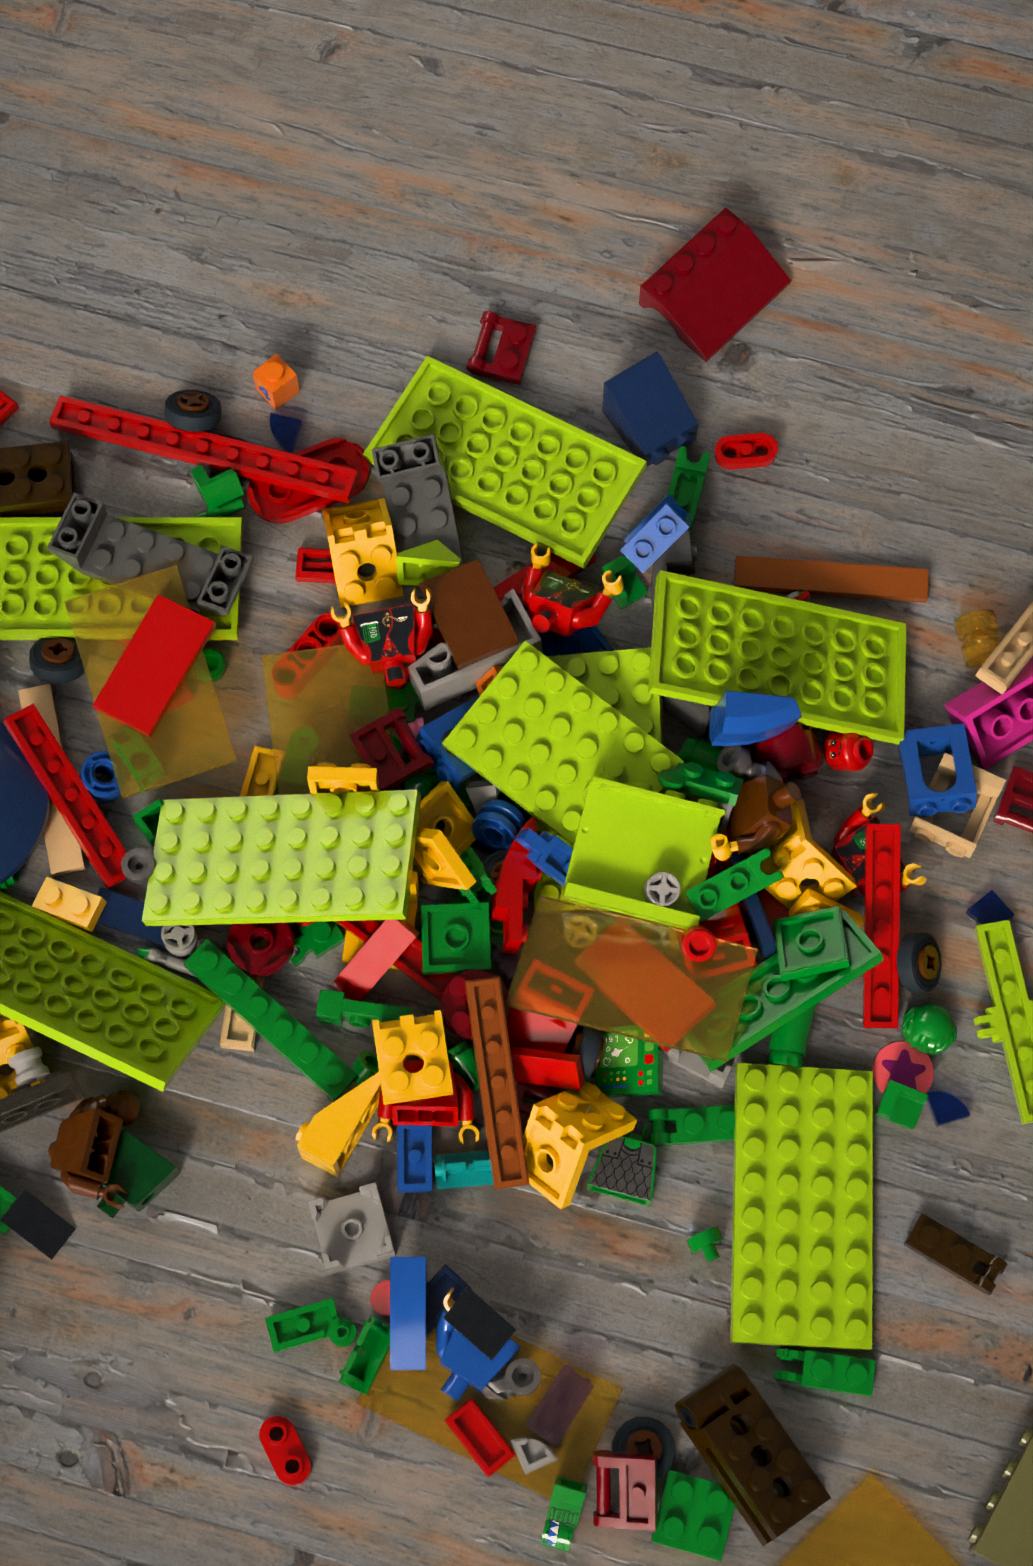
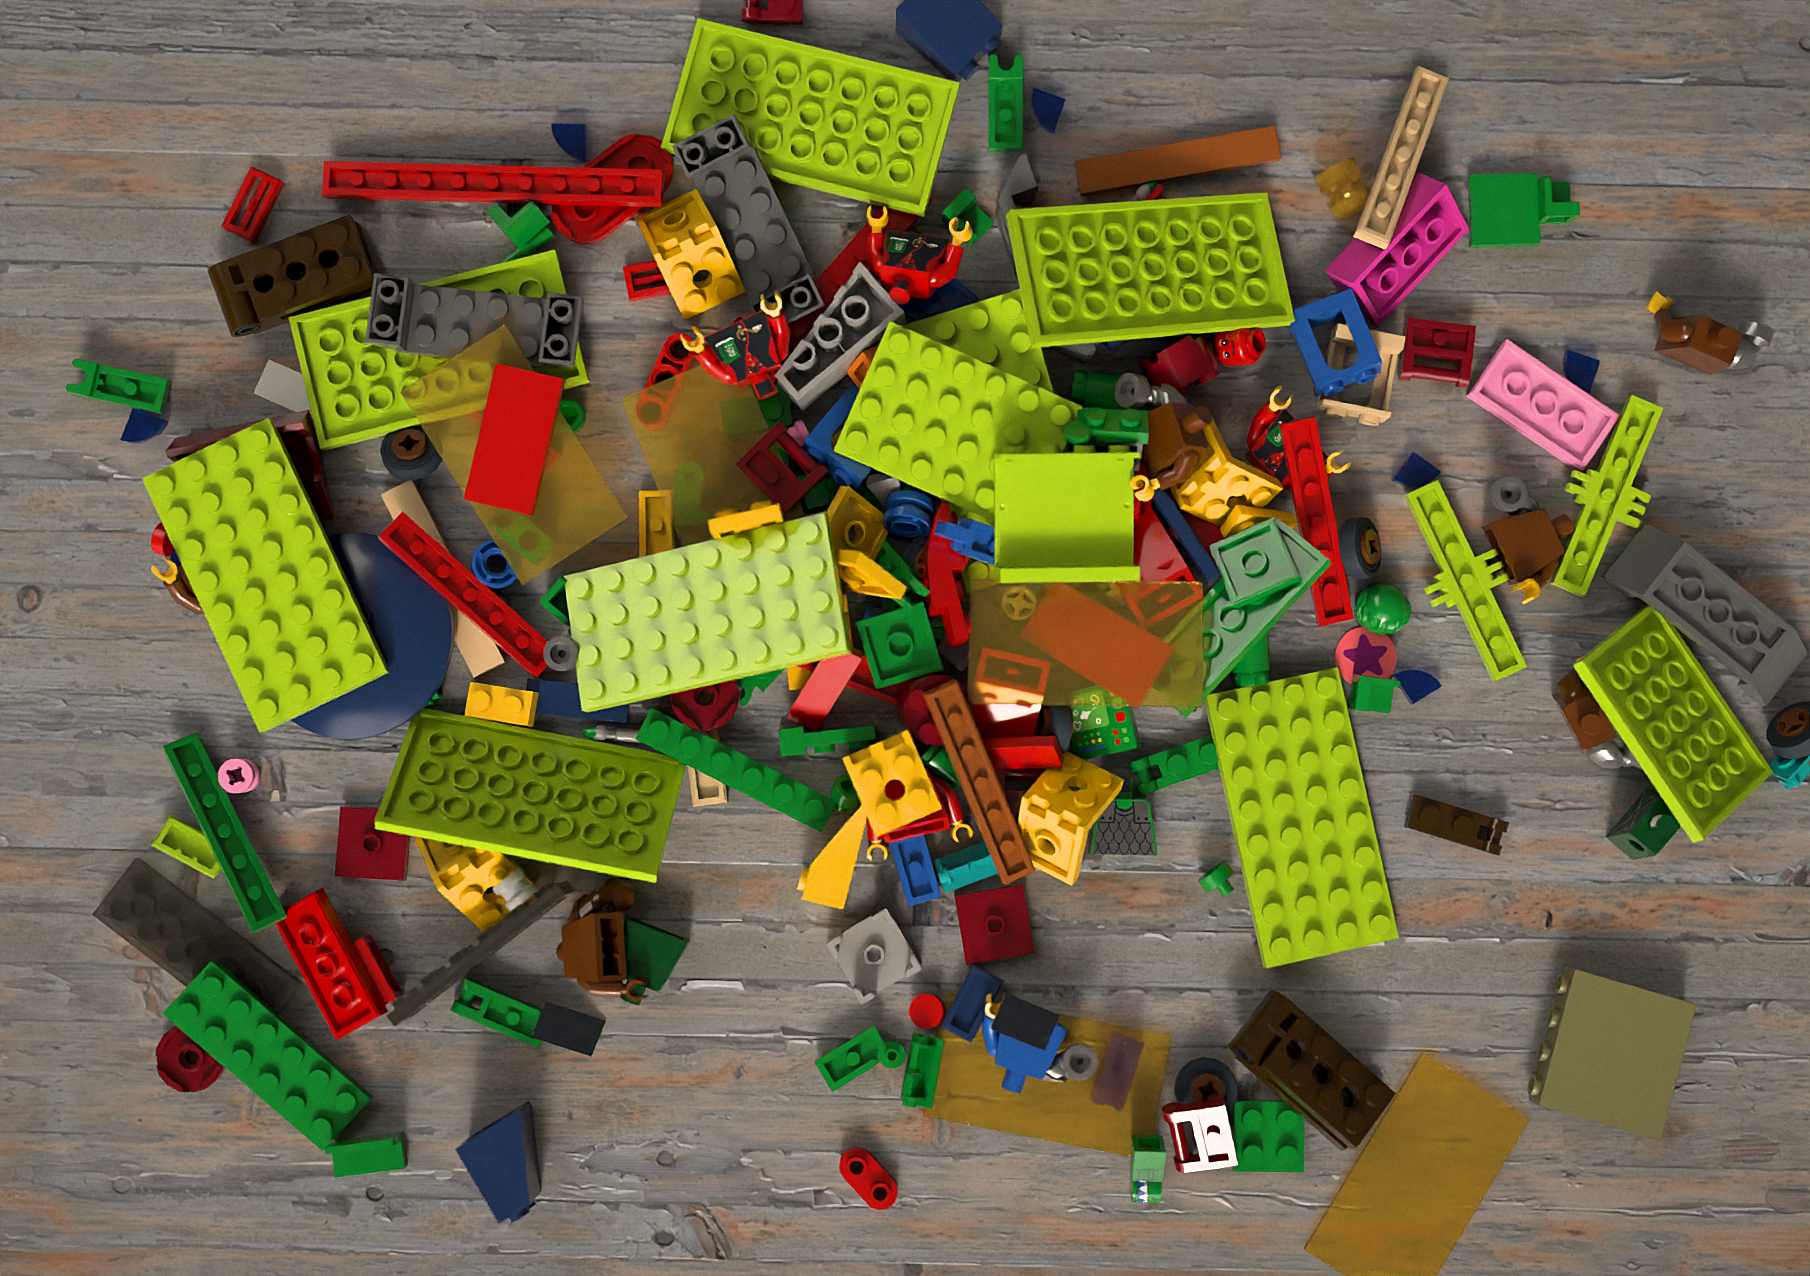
camera: 20 degrees left, 15 degrees up
(177, 933) = (621, 712): light grey wheel -> none
(192, 410) = (469, 143): black wheel -> none
(276, 381) = (547, 88): orange brick -> none
(408, 1313) = (952, 1025): blue slope -> none
(425, 563) = (766, 257): lime slope -> none
(469, 614) = (822, 303): reddish brown tile -> none
(476, 1232) = (994, 924): none -> dark red plate
(480, 1437) = (1049, 1118): red tile -> none
(533, 1454) = (1103, 1120): light grey tile -> none
(656, 533) = (992, 163): panel -> none
(667, 890) = (1101, 548): light grey wheel -> none
(698, 943) = (1144, 594): red tile -> none
(722, 506) = (1047, 108): none -> clear blue tile
(732, 885) = (1164, 524): green plate -> none
(744, 449) = (1056, 42): red plate -> none
(750, 718) = (1140, 349): blue slope -> none
(829, 1372) = (1362, 969): green hinge -> none

